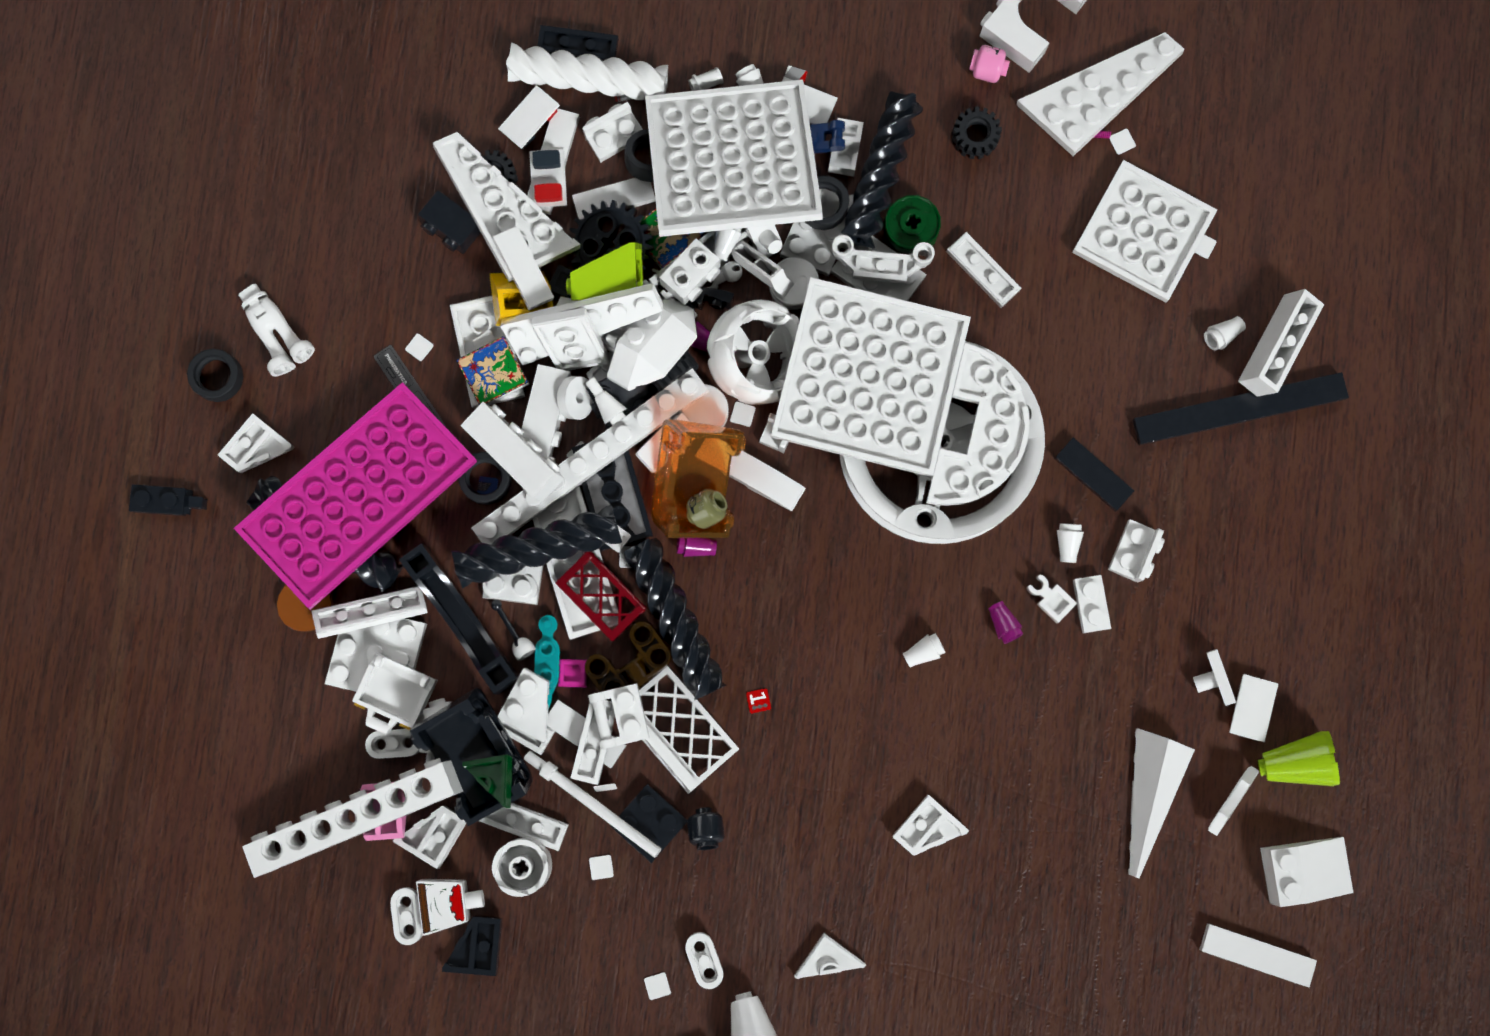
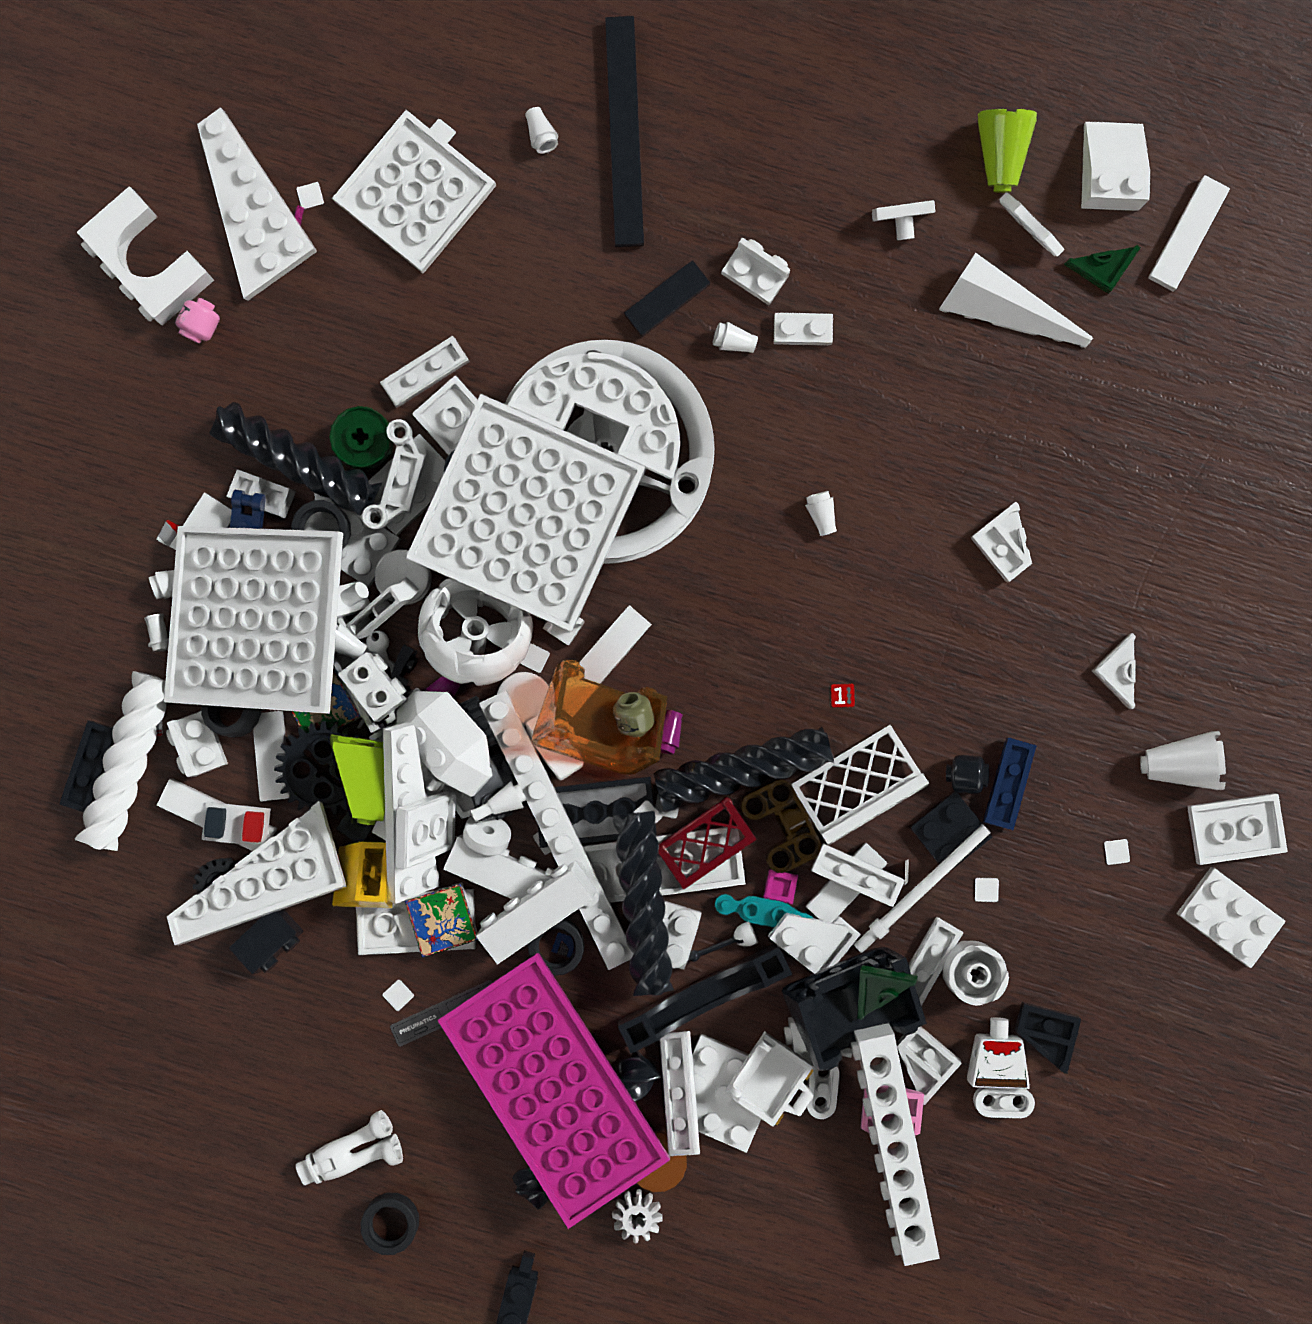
camera: 80 degrees left, 5 degrees up
(254, 445) = (475, 1192): white wing -> none
(260, 586) = (633, 1206): none -> white gear
(523, 268) = (335, 868): white tile -> none
(529, 117) = (163, 833): white piece -> none
(628, 715) = (838, 834): white plate -> none
(703, 870) = (1009, 783): none -> dark blue plate
(704, 959) = (1099, 799): white plate -> none
(950, 293) = (447, 413): none -> white plate
(980, 118) = (260, 337): black tyre -> none
(1005, 623) = (807, 422): magenta cone -> none
(1054, 601) = (794, 367): white plate -> none
(1208, 879) = (1103, 268): none -> dark green tile
(1253, 708) = (940, 184): white piece -> none
(1281, 343) = (564, 72): white brick -> none

